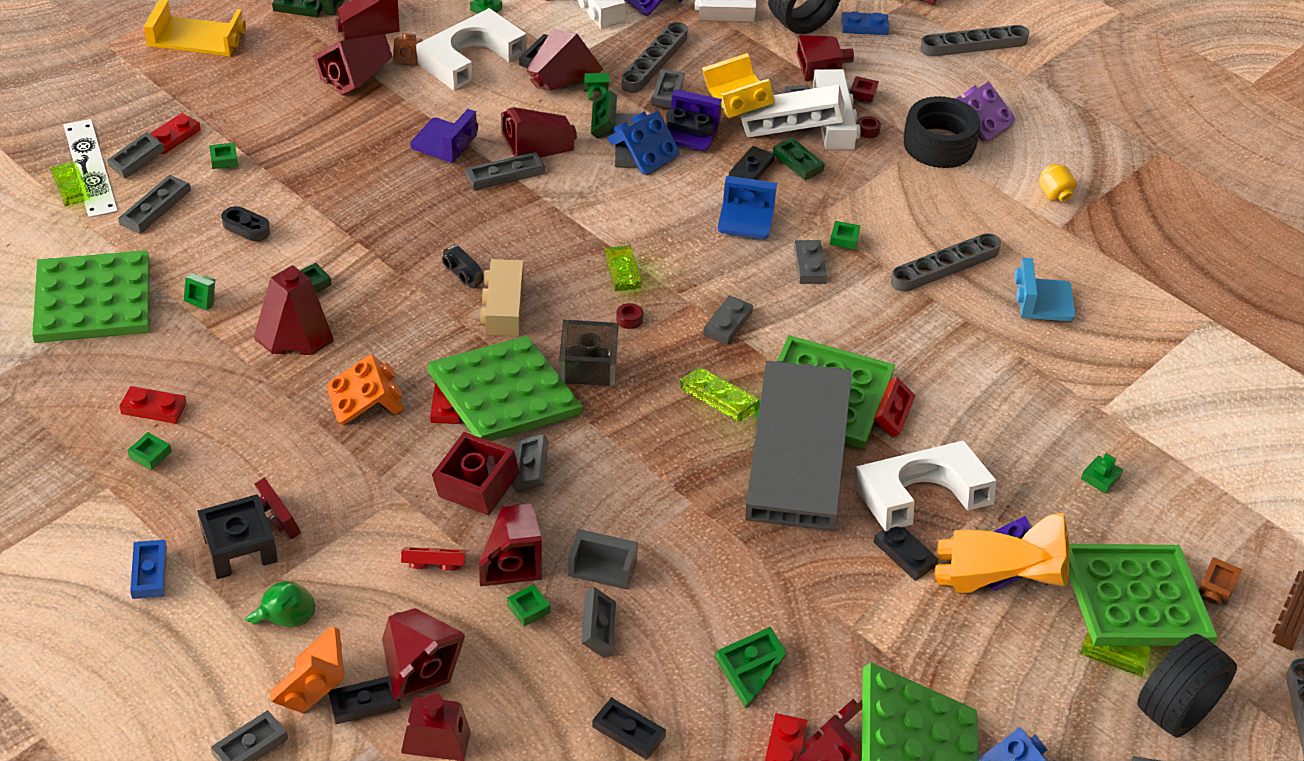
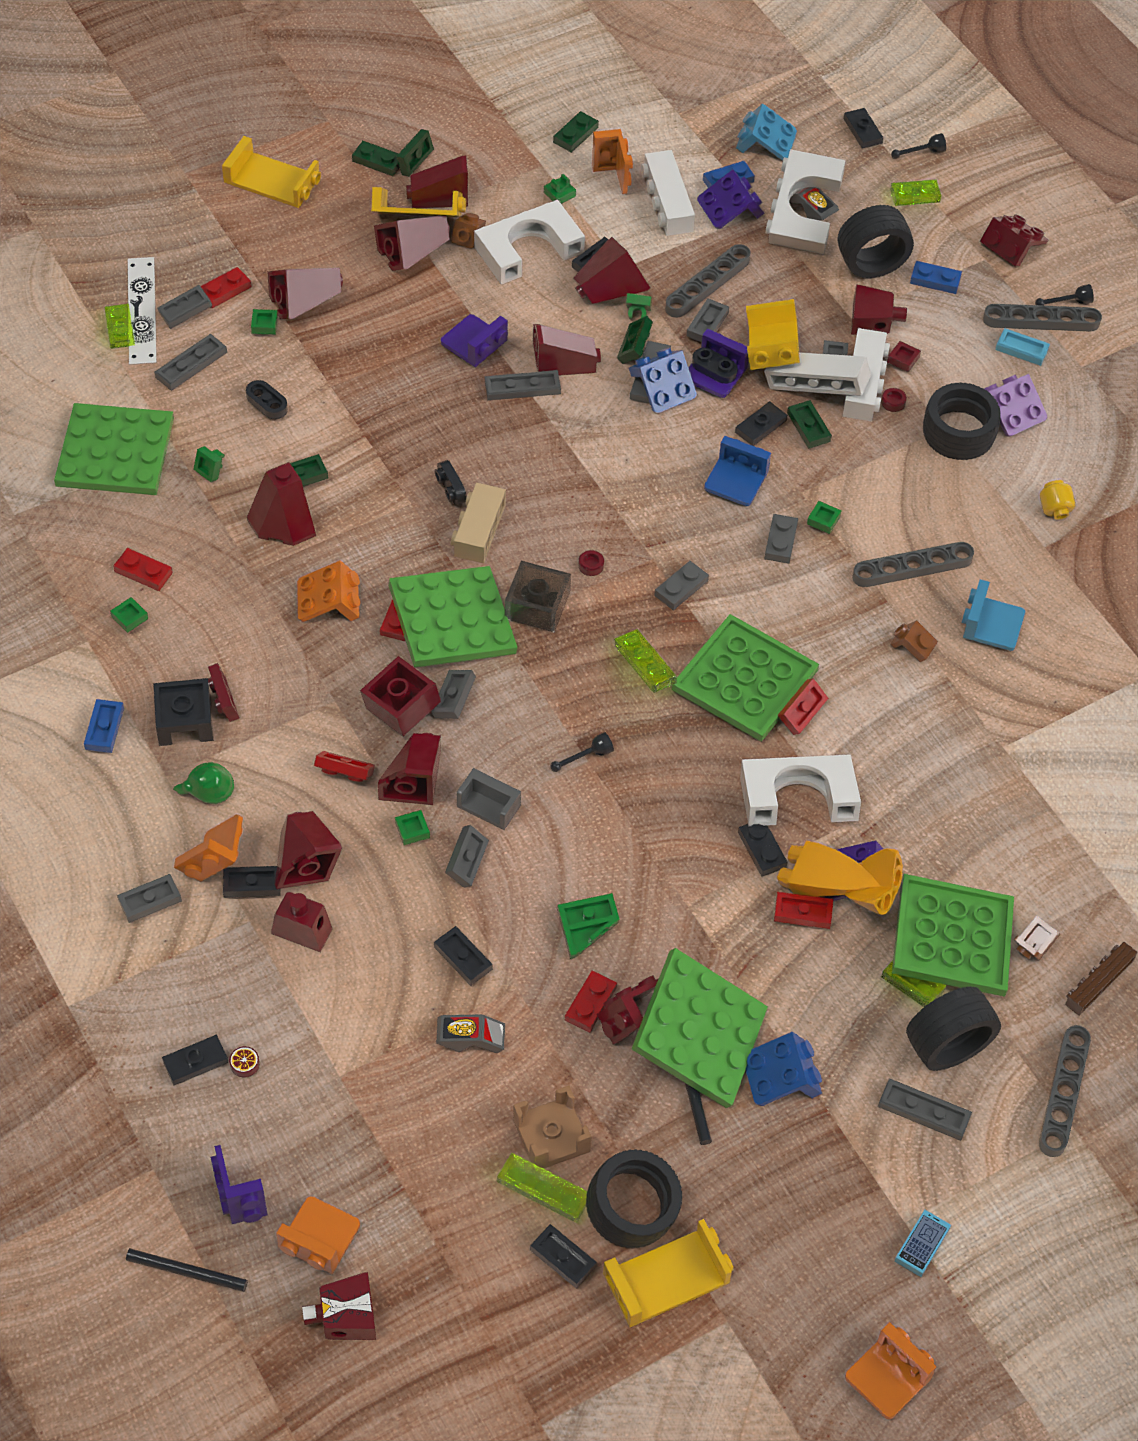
camera: 15 degrees right, 10 degrees up
(255, 118) = (302, 289): none -> slope
(322, 41) = (379, 206): none -> yellow panel
(622, 268) = (599, 512): clear neon green plate -> none
(702, 483) = (600, 745): none -> black hinge
(799, 446) = (698, 727): dark grey brick -> none
(967, 66) = (1022, 346): none -> medium azure tile
(974, 603) = (803, 910): none -> red plate
(977, 325) = (915, 640): none -> dark orange bracket
(1004, 17) = (1082, 295): none -> black hinge
(1102, 473) = (974, 811): green tile -> none

